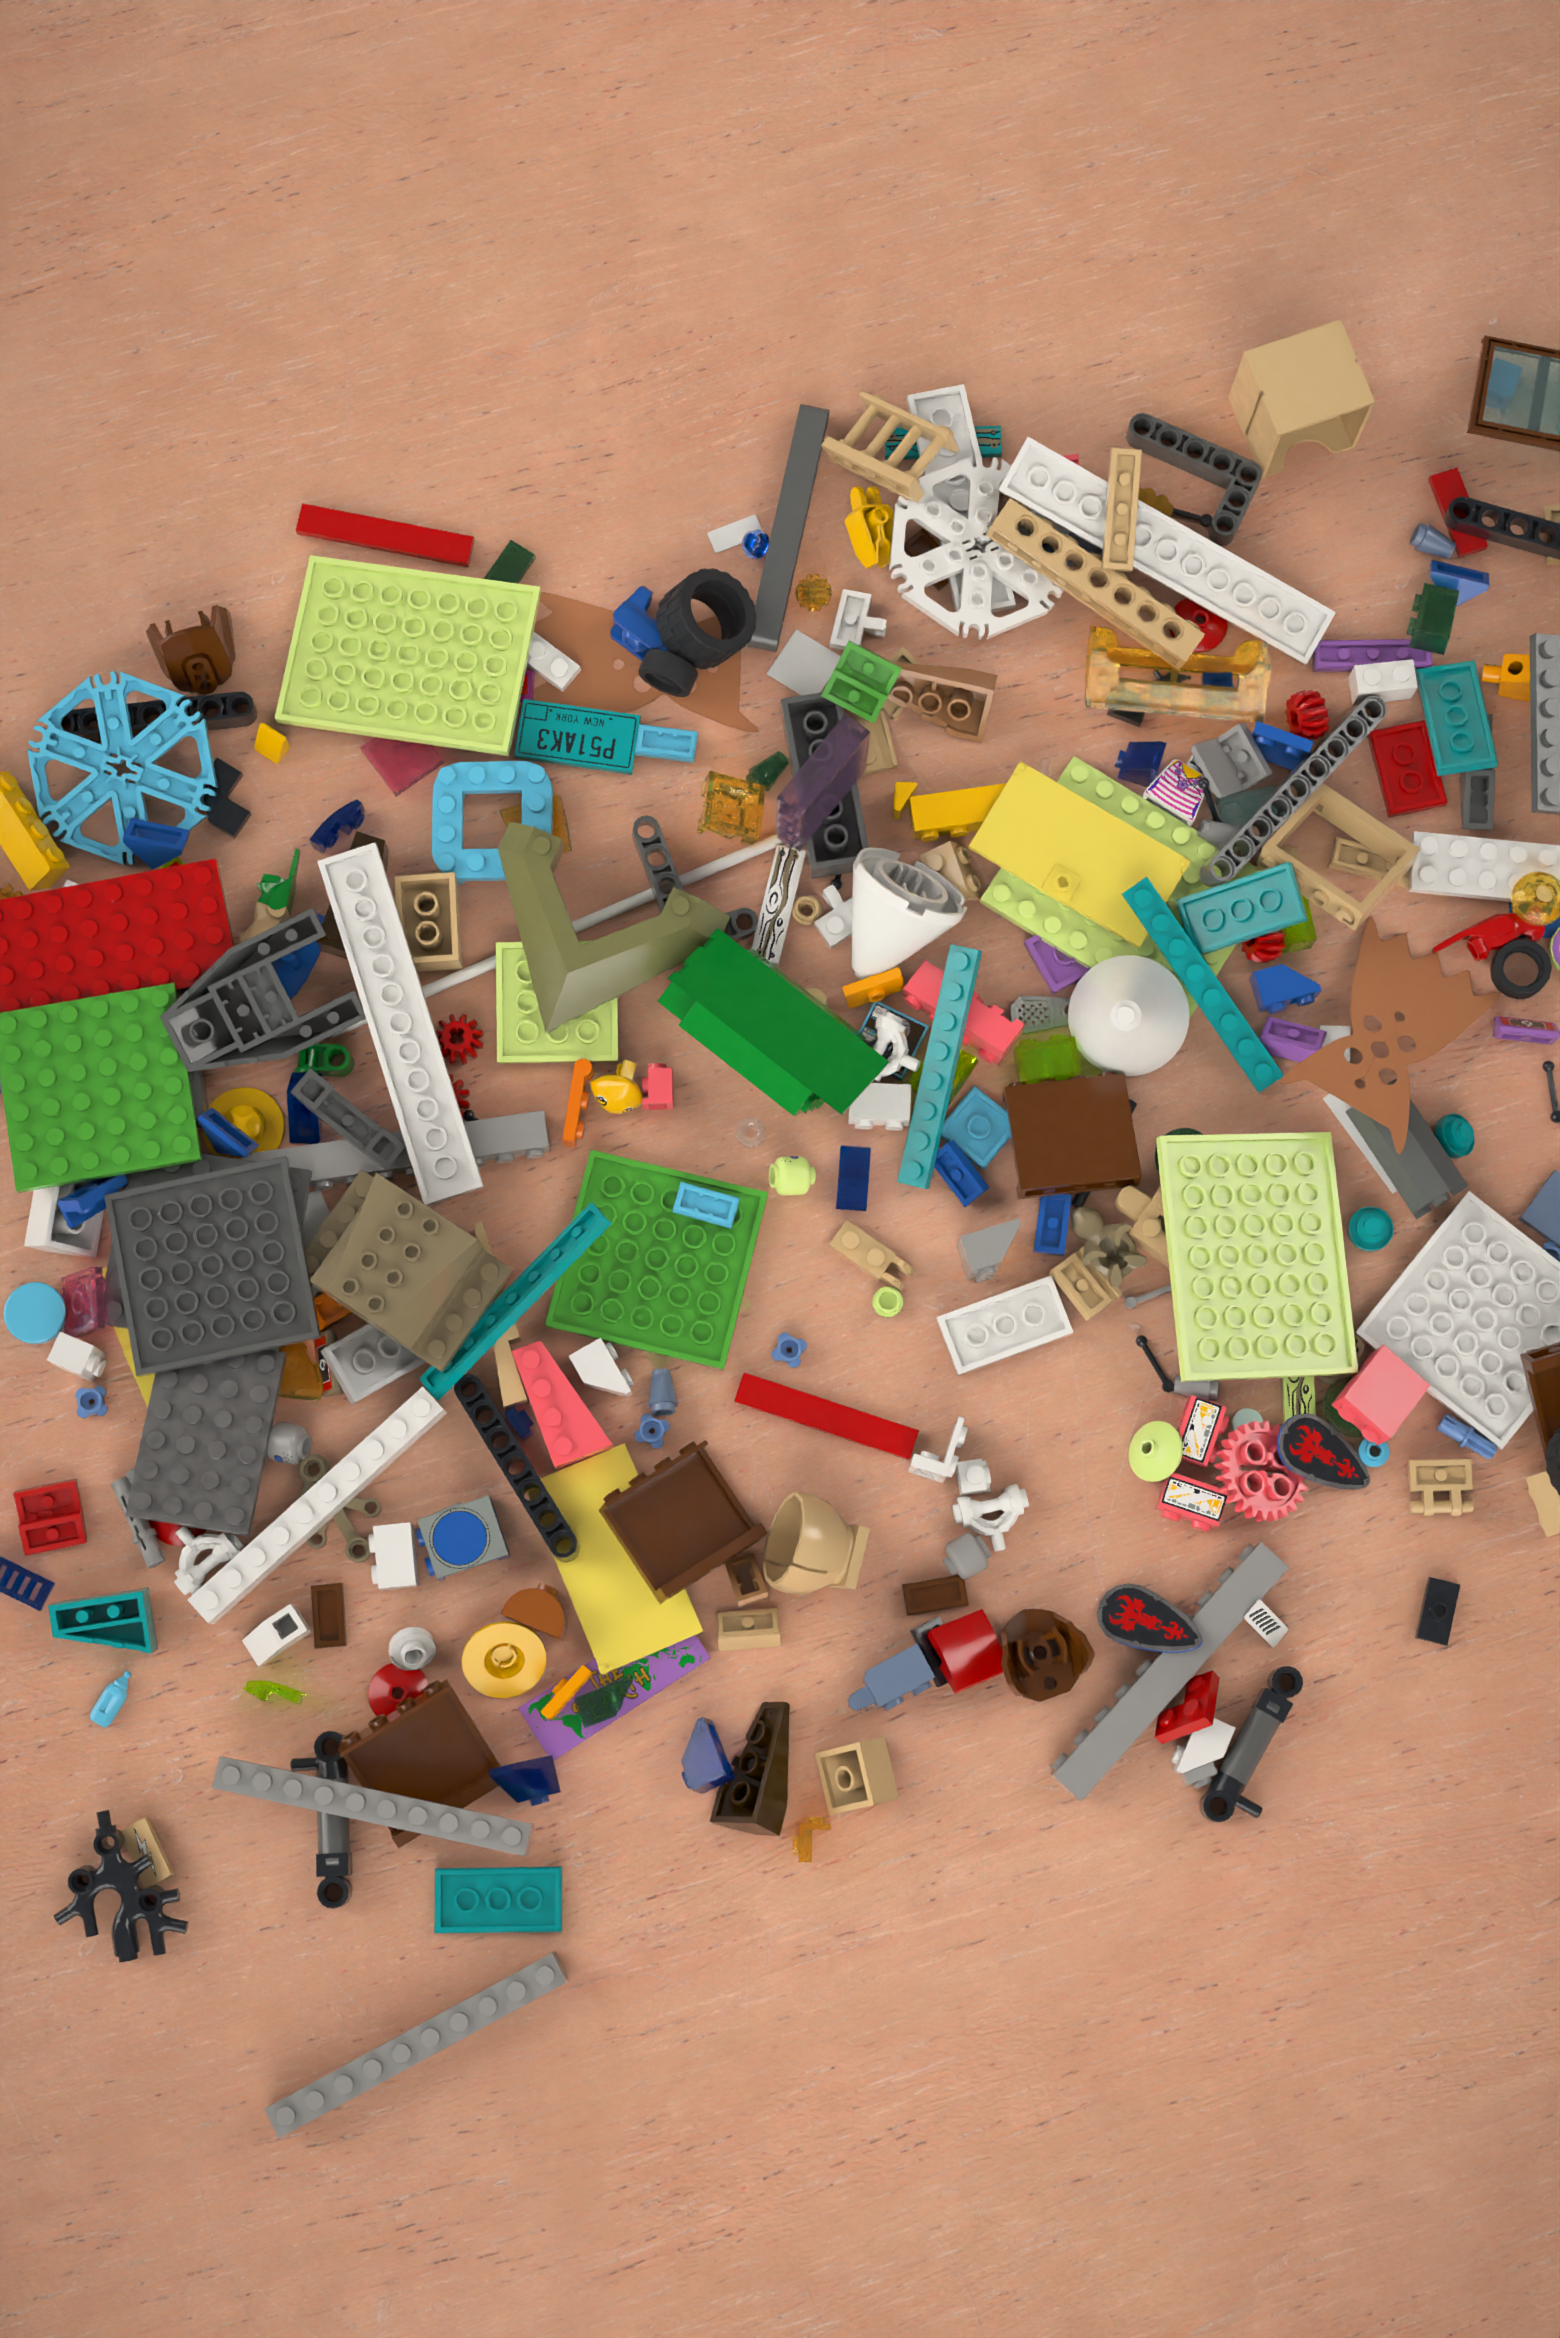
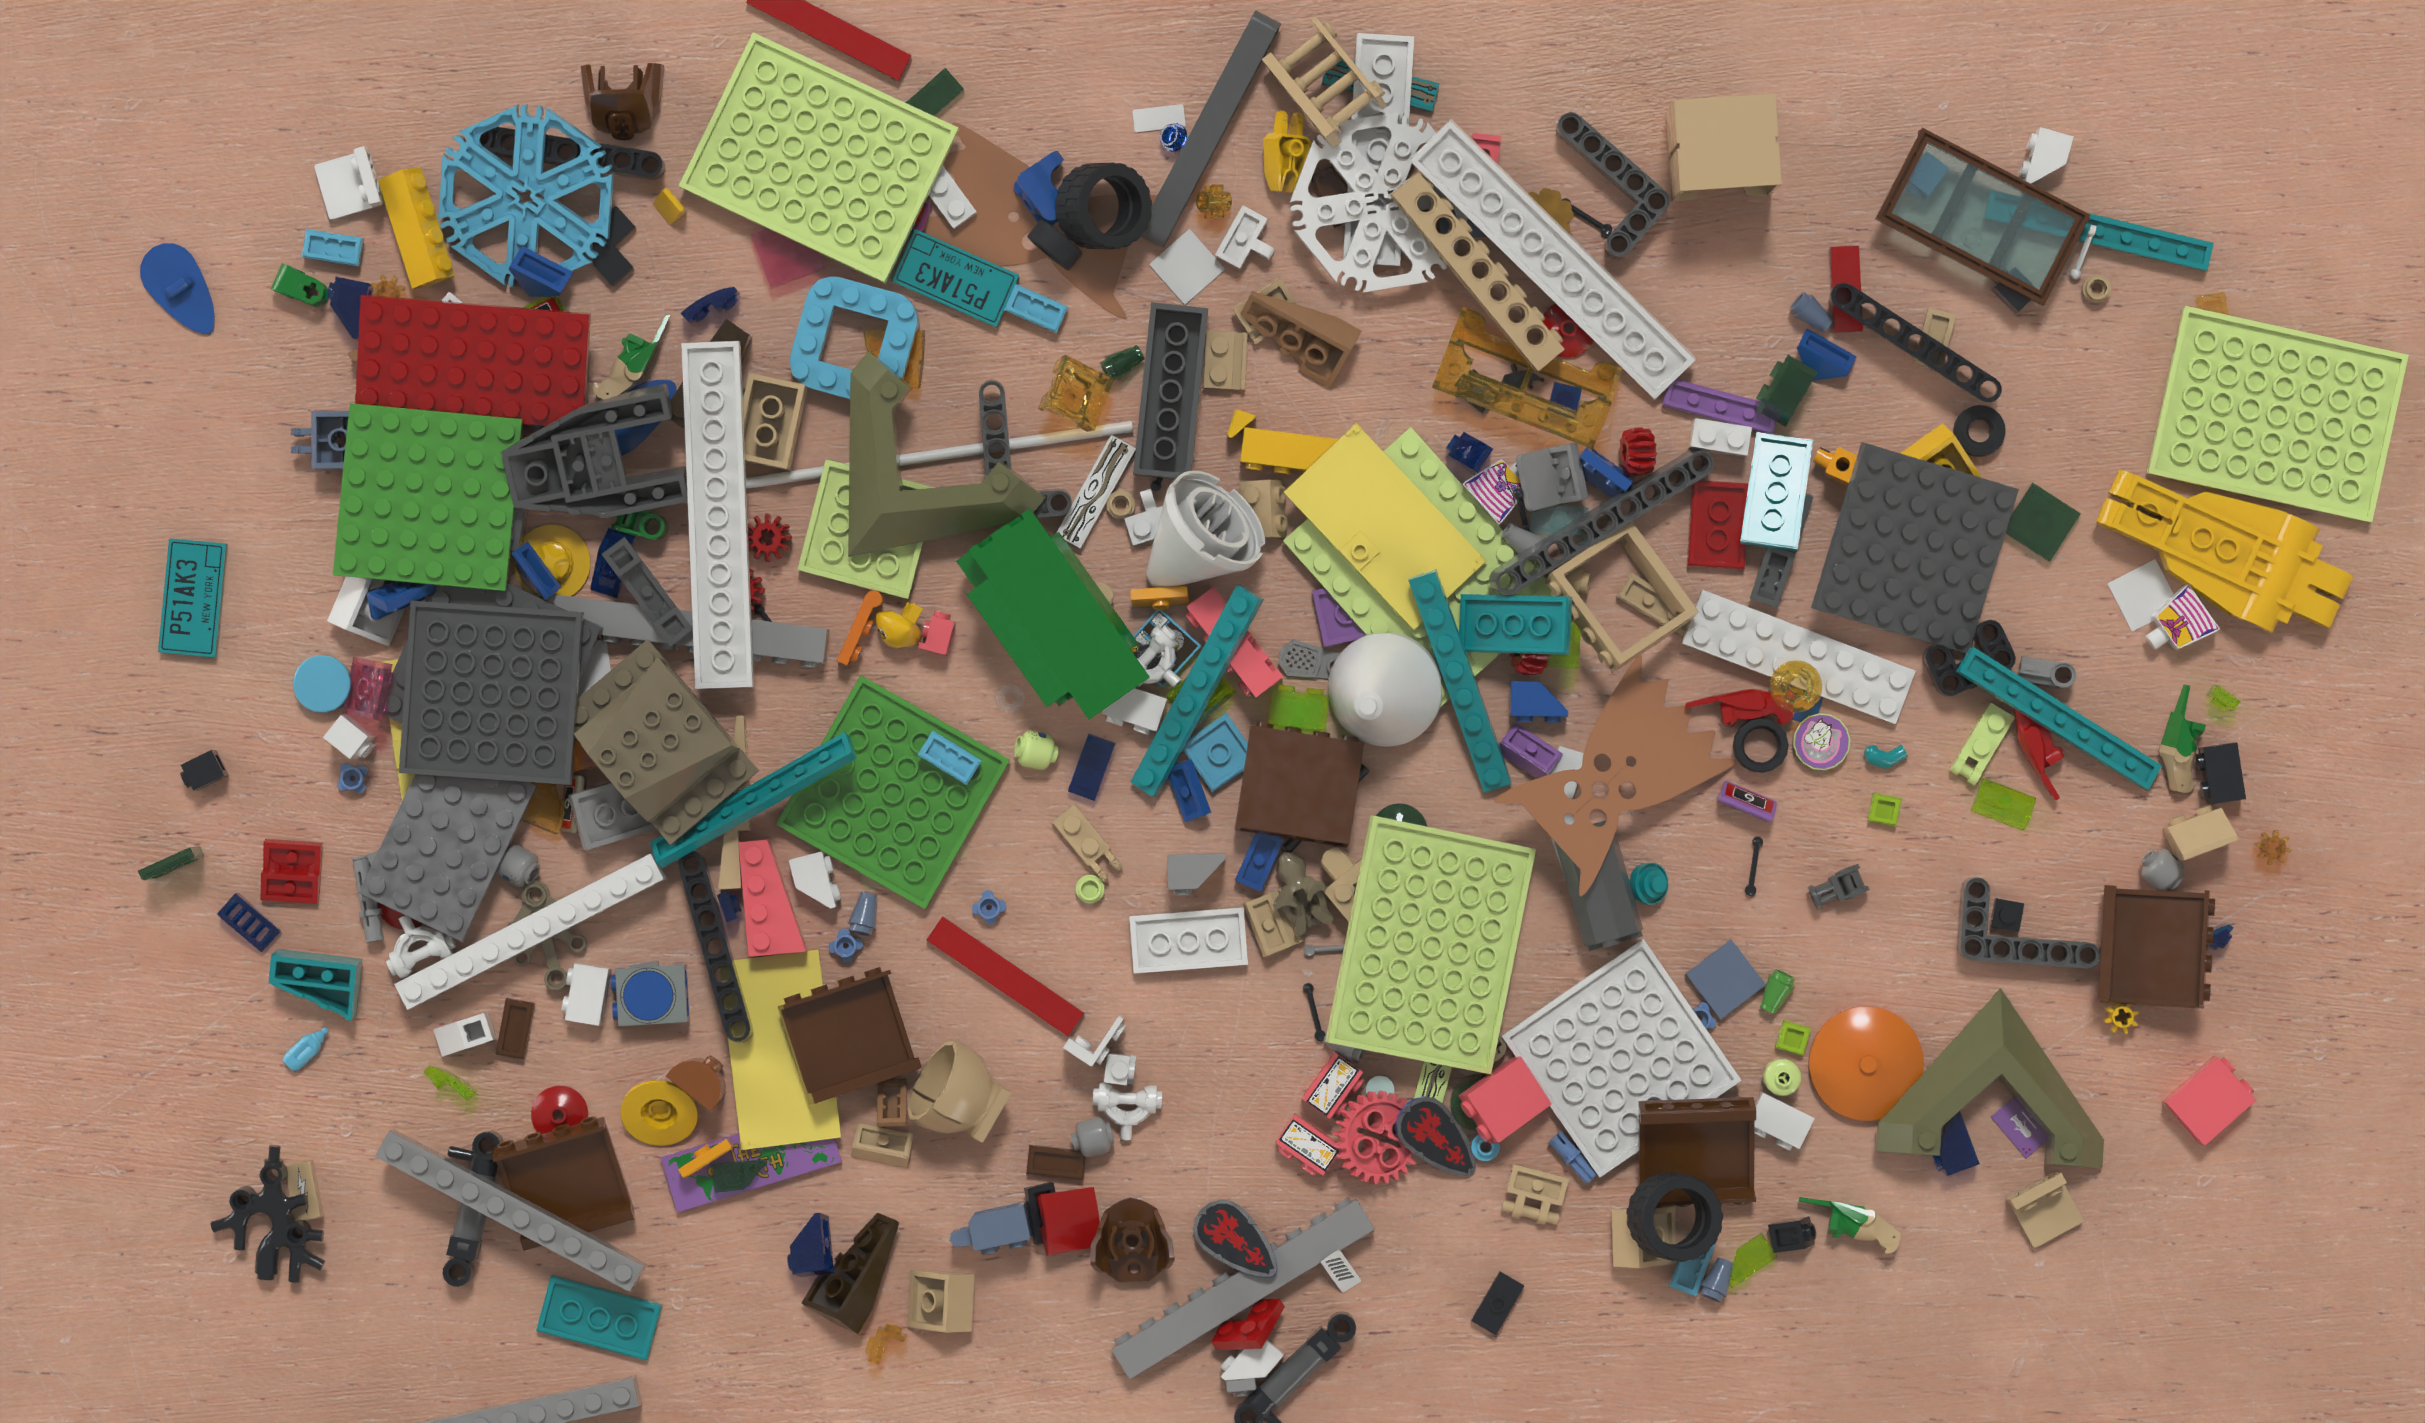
camera: 25 degrees right, 10 degrees up
(411, 1648) = (580, 1079): white plate -> none
(528, 1780) = (652, 1223): clear blue slope -> none
(822, 783) = (1158, 408): clear purple window -> none
(861, 681) = (1230, 308): bright green slope -> none
(1121, 509) = (1518, 214): tan plate -> none
(1164, 1455) = (1295, 1098): yellowish green dish -> none
(1370, 1229) = (1545, 946): teal plate -> none

